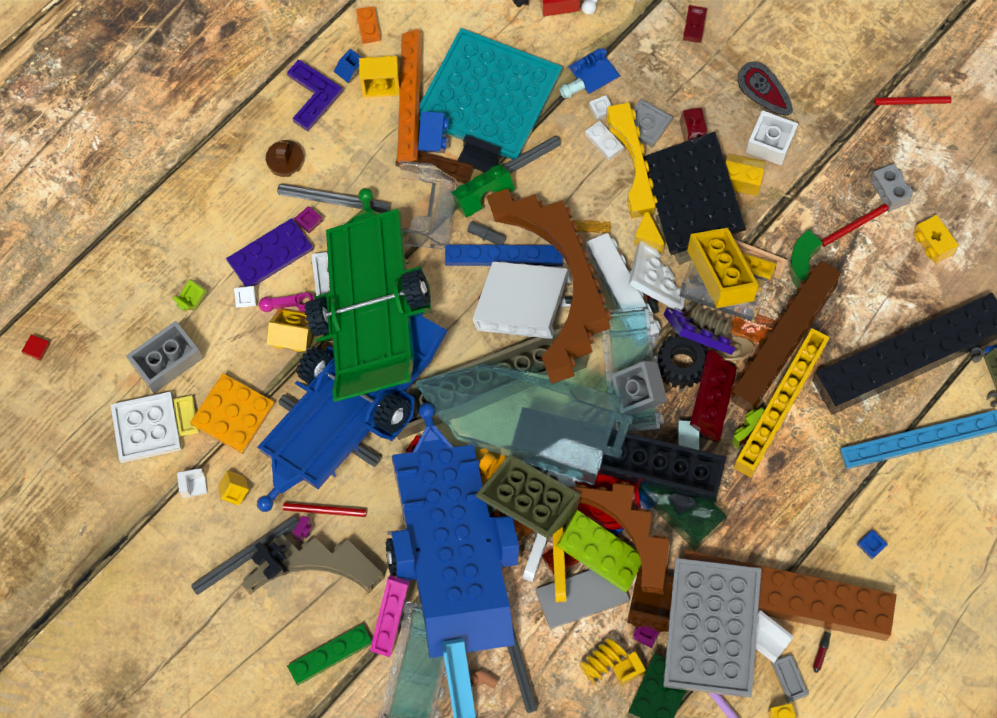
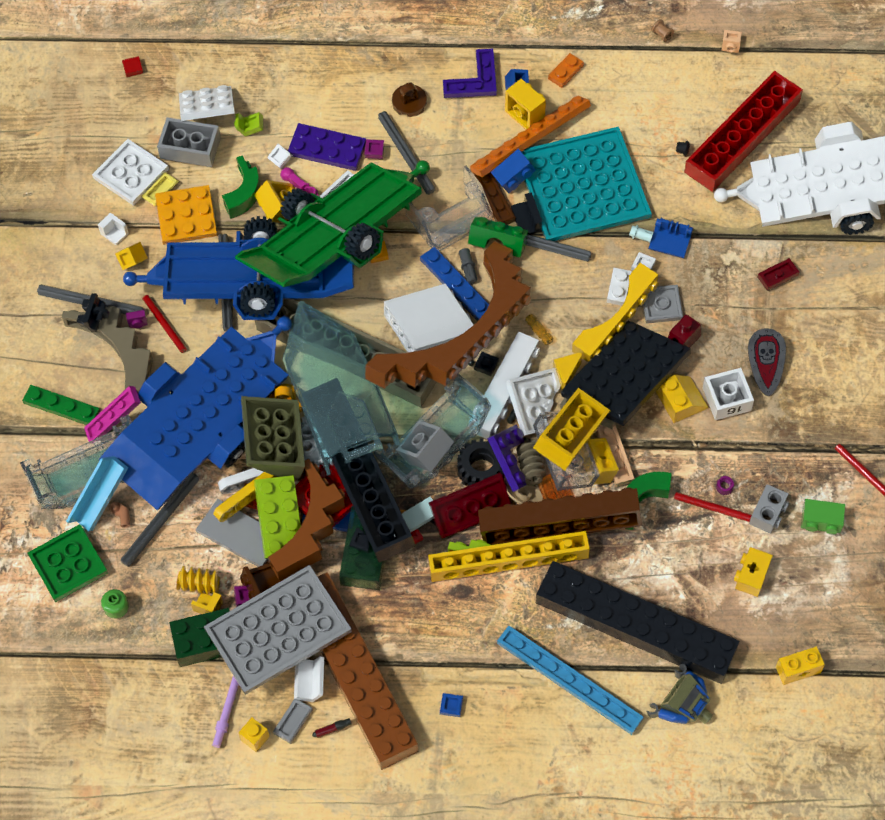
camera: 50 degrees right, 5 degrees down
(139, 314) = (206, 103): none -> white plate
(260, 360) = (244, 197): none -> green arch
(844, 196) = (729, 481): none -> magenta axle
(929, 156) = (822, 516): none -> bright green brick

